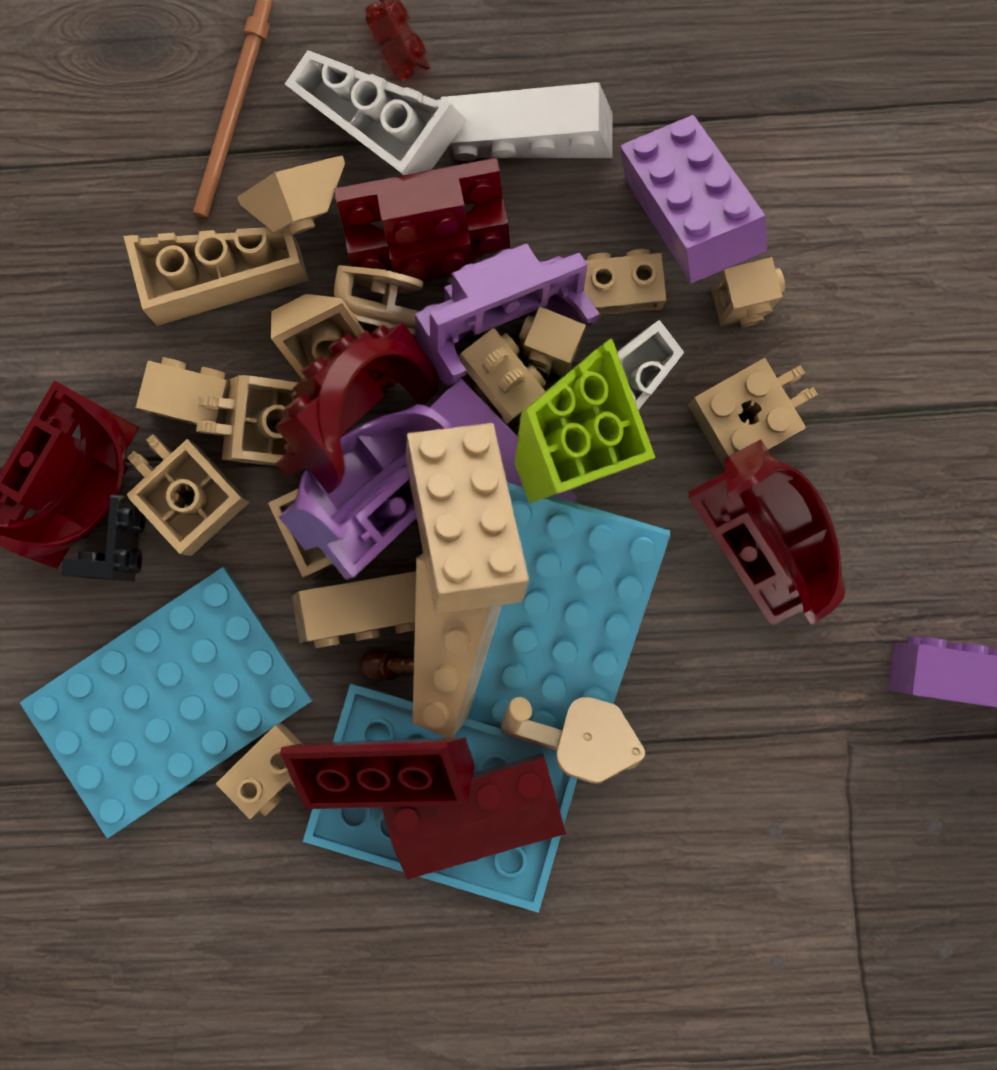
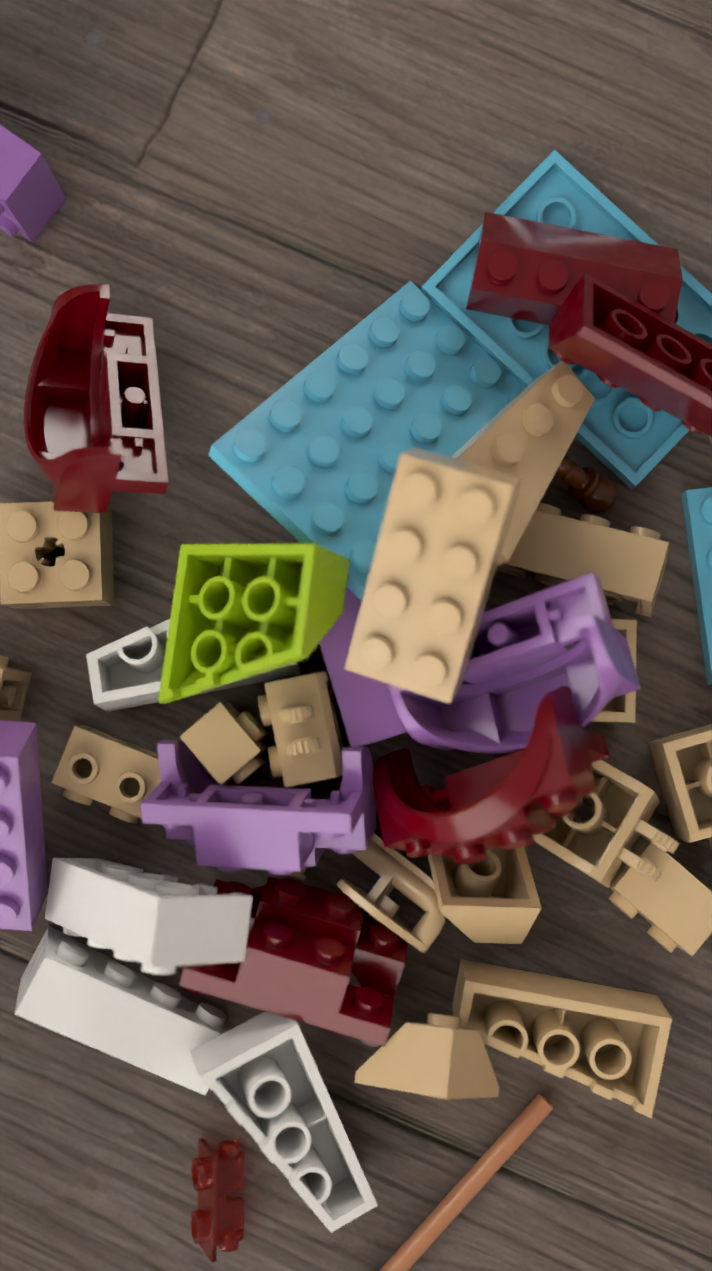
camera: 155 degrees left, 0 degrees up
(545, 194) = (147, 915): none -> white wedge
(589, 747) = (409, 281): tan piece -> none

